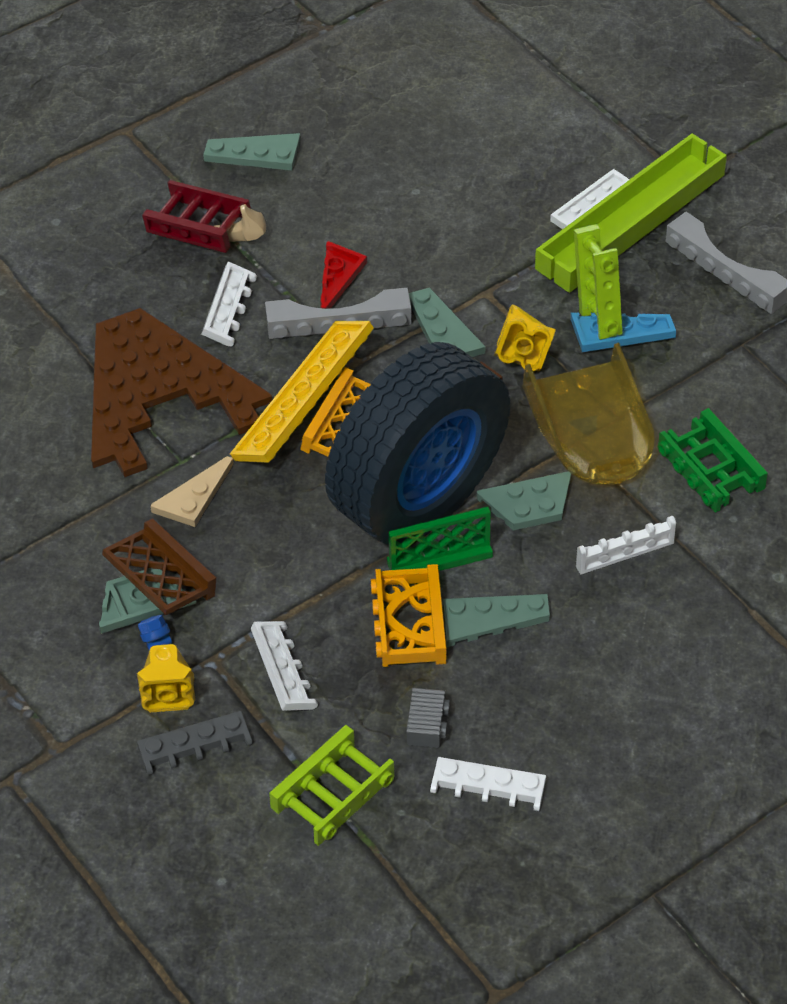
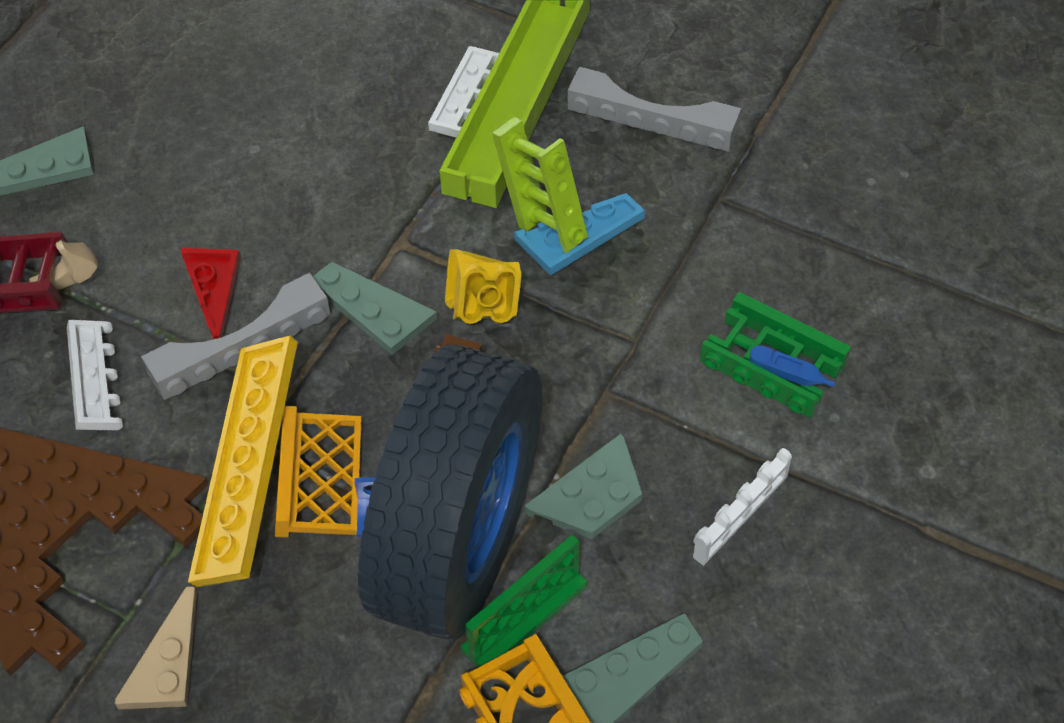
camera: 25 degrees left, 5 degrees up
(593, 420) = (615, 356): clear yellow windscreen -> none
(712, 469) = (788, 367): none -> blue piece

